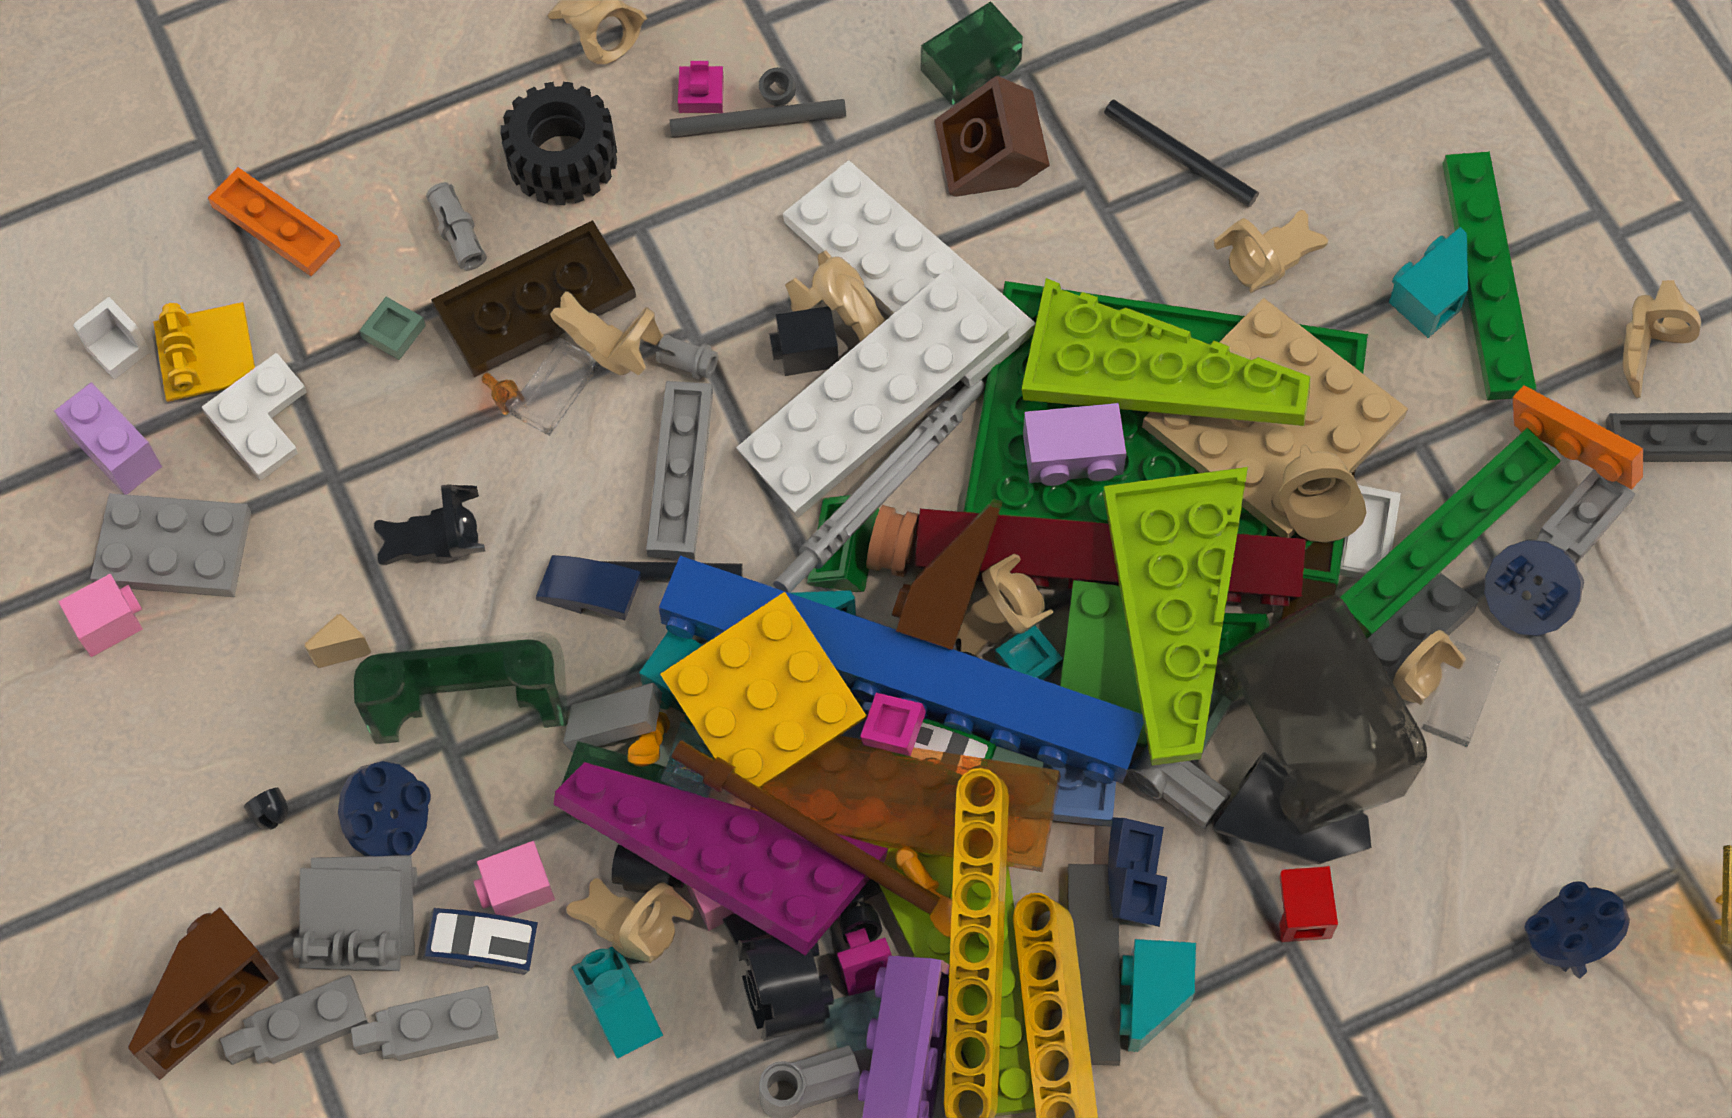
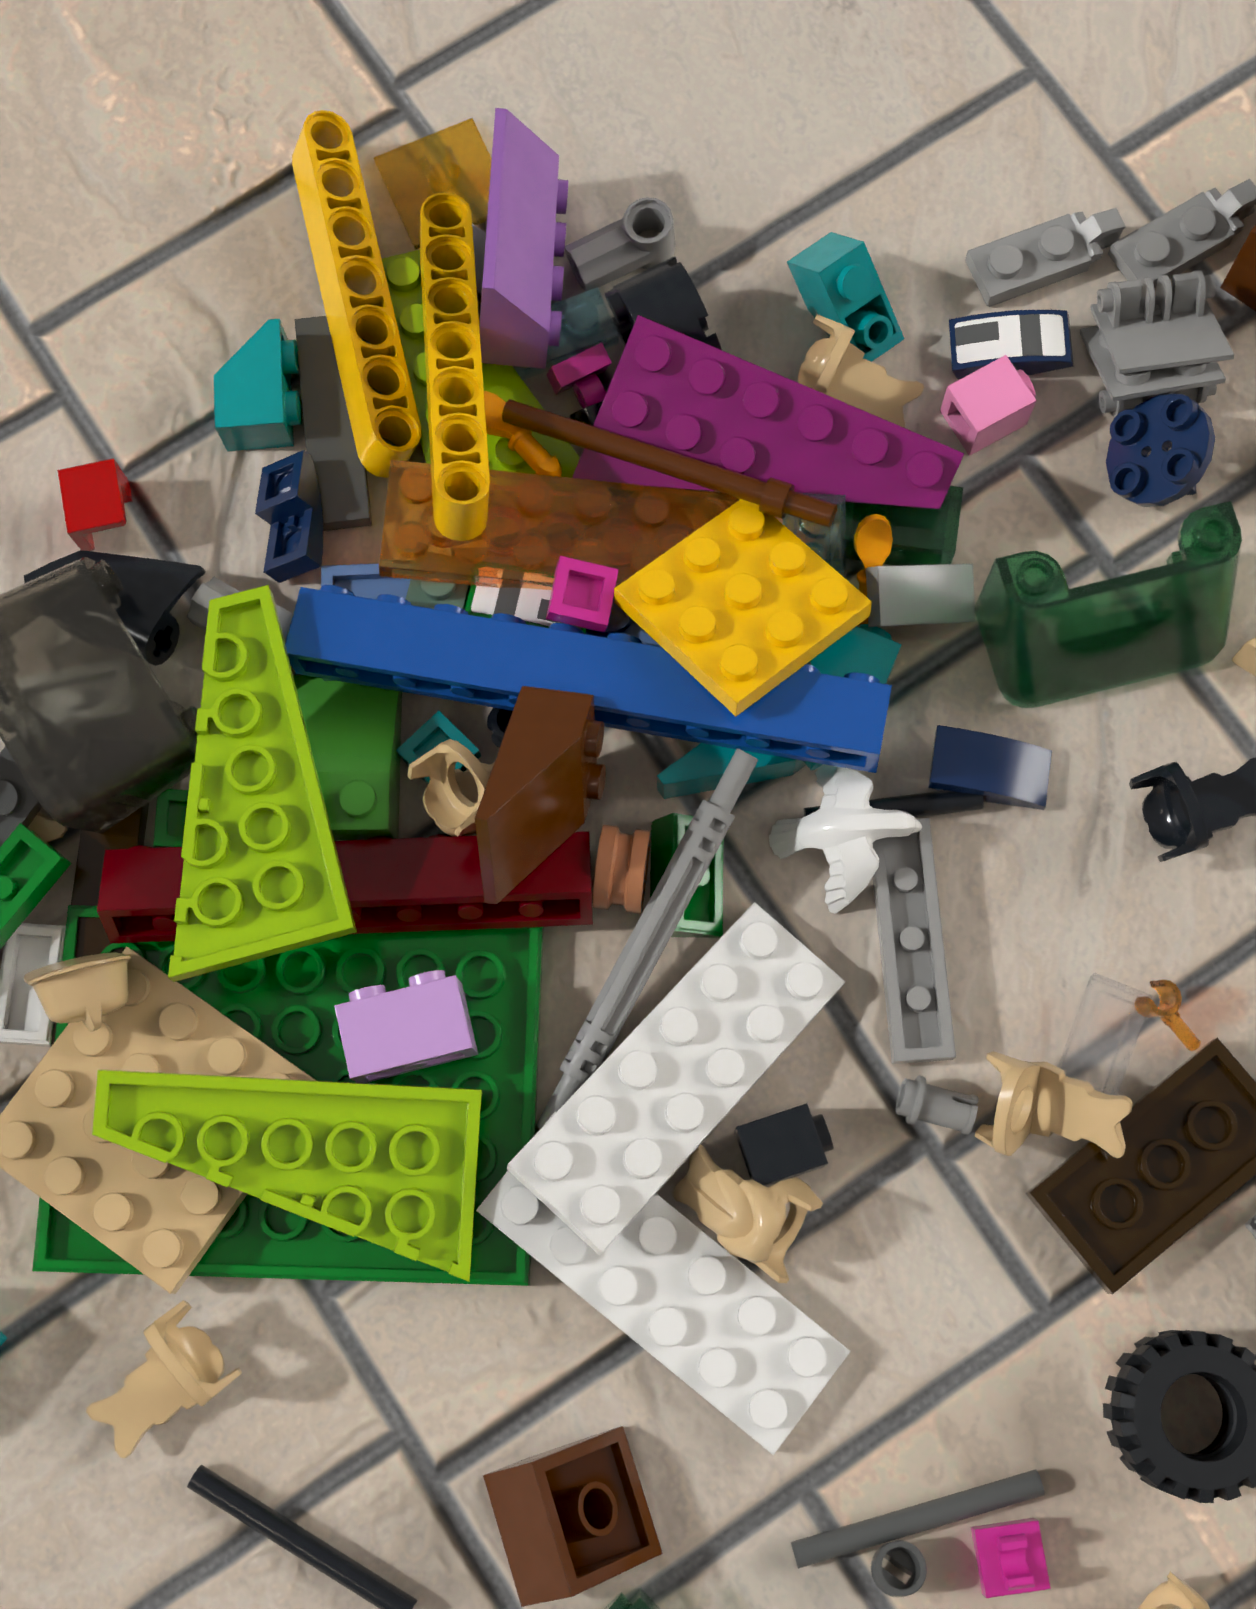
camera: 175 degrees right, 10 degrees up
(716, 540) = (845, 832): none -> white animal

